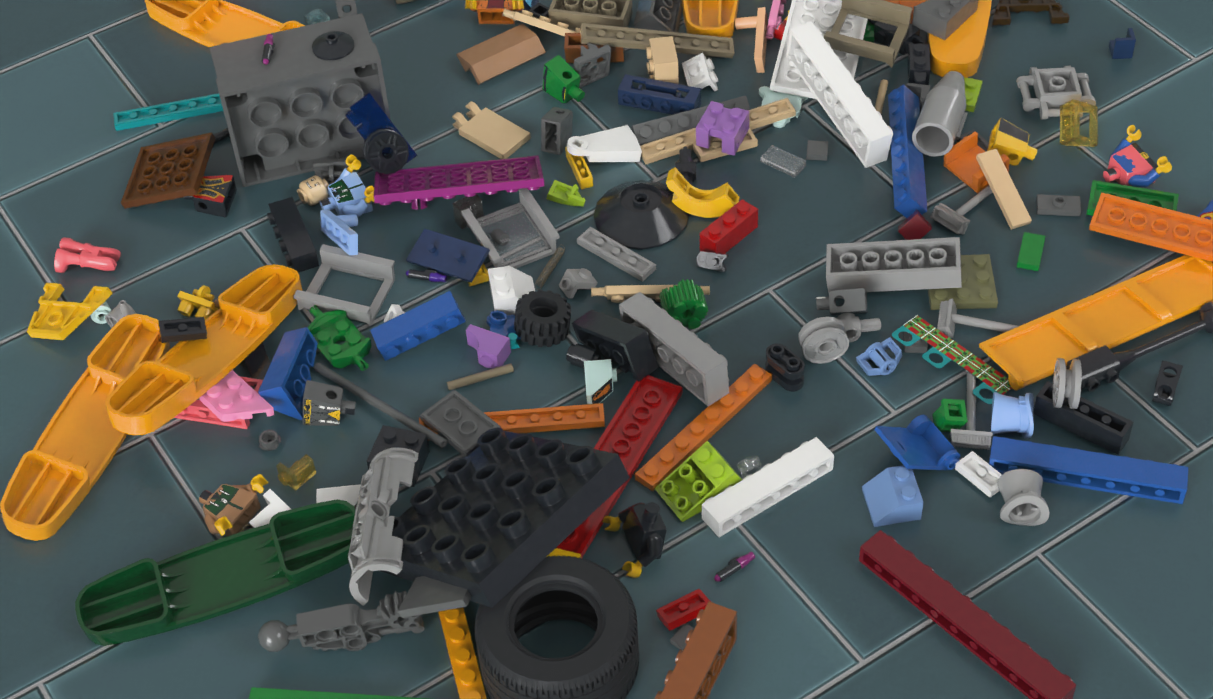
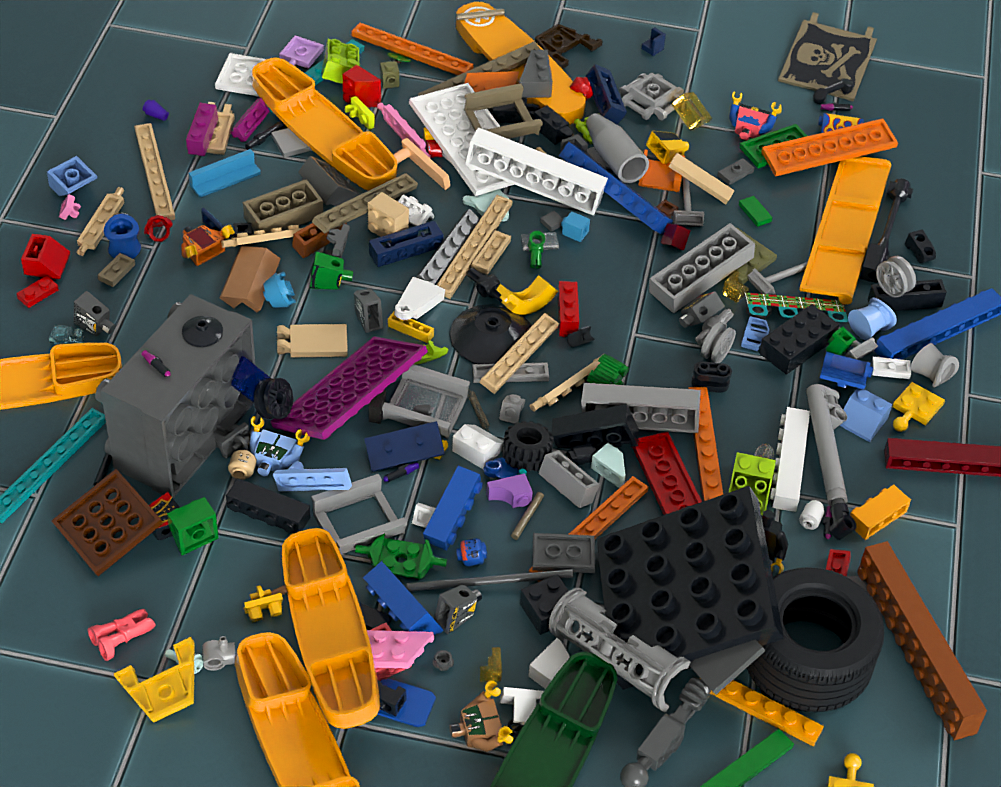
camera: 50 degrees left, 0 degrees up
(182, 329) = (294, 626): black plate -> none
(191, 437) = (391, 700): none -> black leg
(205, 451) = (417, 706): none -> blue piece
(216, 211) = (193, 525): none -> green slope
(394, 373) = (472, 552): none -> blue head
(505, 74) = (278, 291): none -> dark azure cone
(542, 367) = (568, 479): none -> light grey brick
(637, 240) = (519, 353): none -> tan tile
(723, 123) = (485, 236): medium lavender piece -> none
(723, 548) = (812, 515): none -> white brick
(763, 163) = (536, 249): none -> green pin
(791, 590) = (880, 511): none -> light orange brick
(829, 165) = (575, 226): none -> dark azure brick
(851, 457) = (825, 417): none -> light grey piece
(913, 386) = (798, 339): none -> black brick
(916, 303) = (734, 289): none -> clear yellow panel
(942, 196) = (667, 208): none -> reddish brown tile
(964, 524) = (916, 404): none -> yellow plate
(986, 46) = (583, 86): none -> red piece
(998, 84) = (606, 93): none -> dark blue brick

